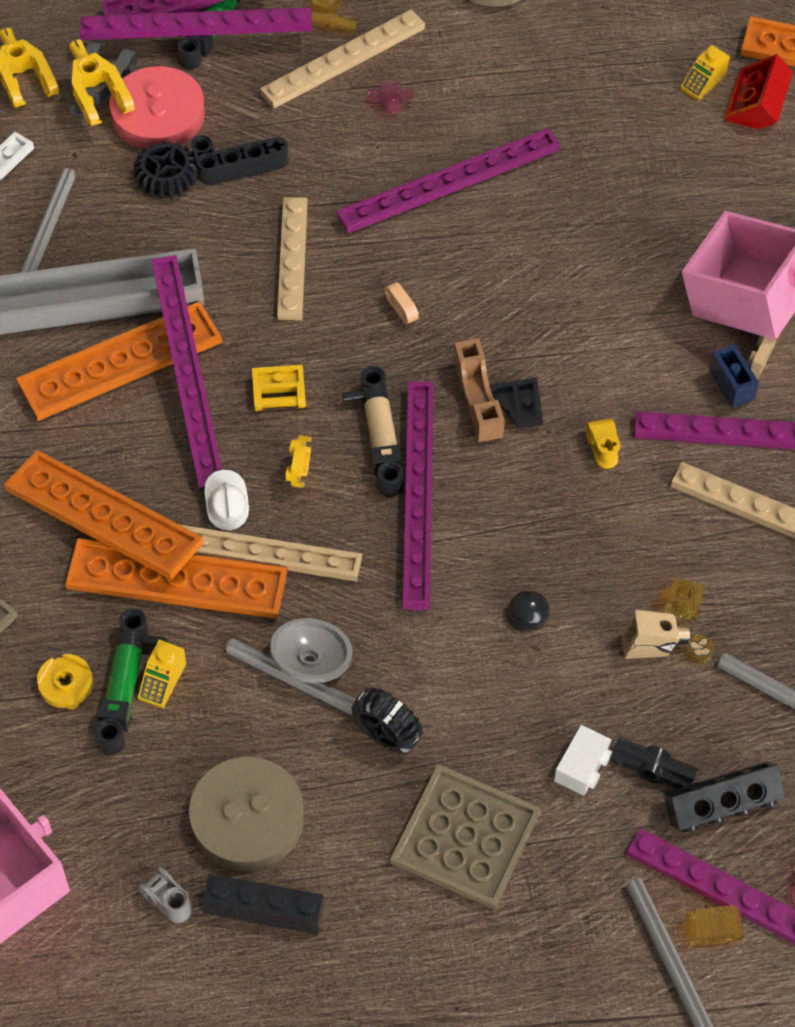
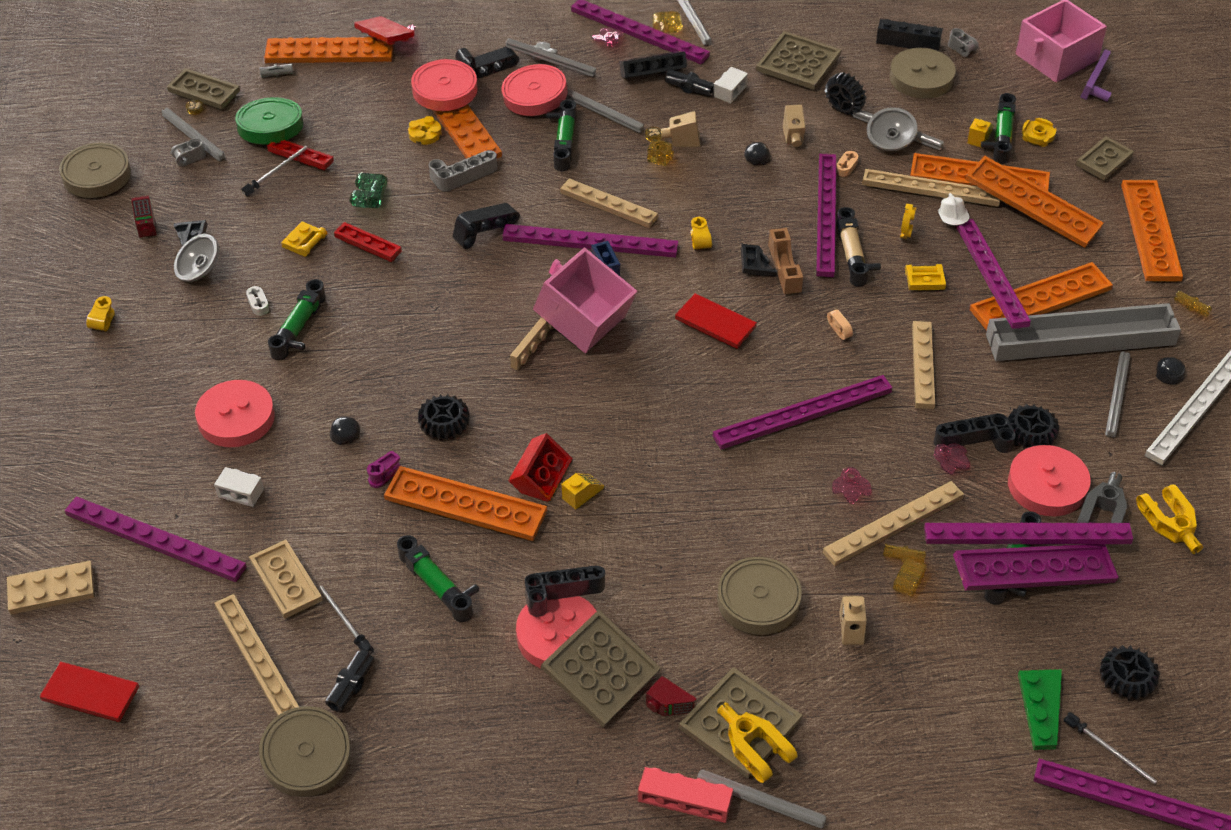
camera: 175 degrees left, 10 degrees down
(101, 72) = (1111, 483): yellow piece -> none
(271, 128) = (951, 457): none -> clear pink plate
(379, 596) = (844, 162): none -> light nougat beam
(470, 645) = (794, 132): none -> tan torso
(569, 302) = (715, 320): none -> red tile

